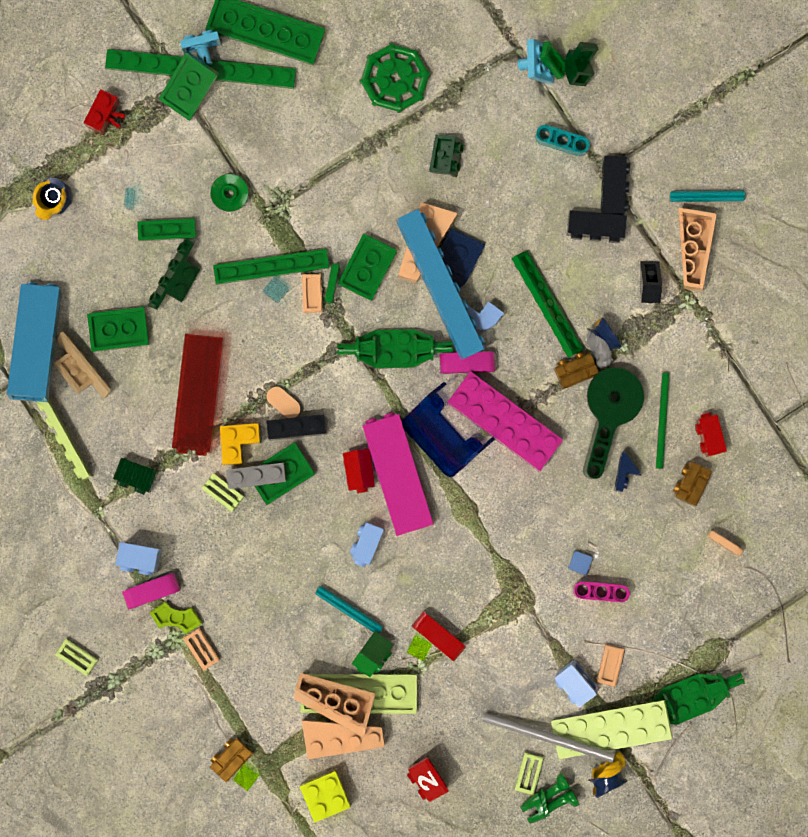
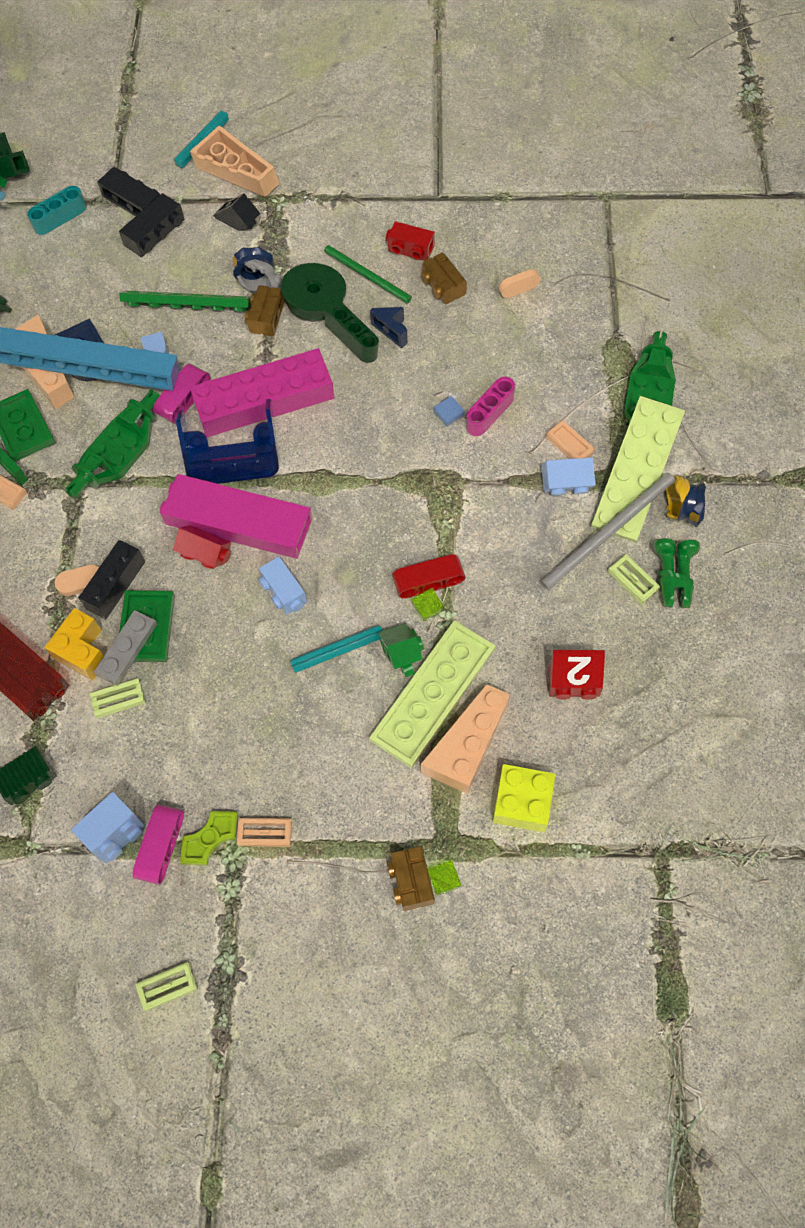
camera: 50 degrees left, 20 degrees down
(336, 701) = (424, 710): light nougat wedge -> none

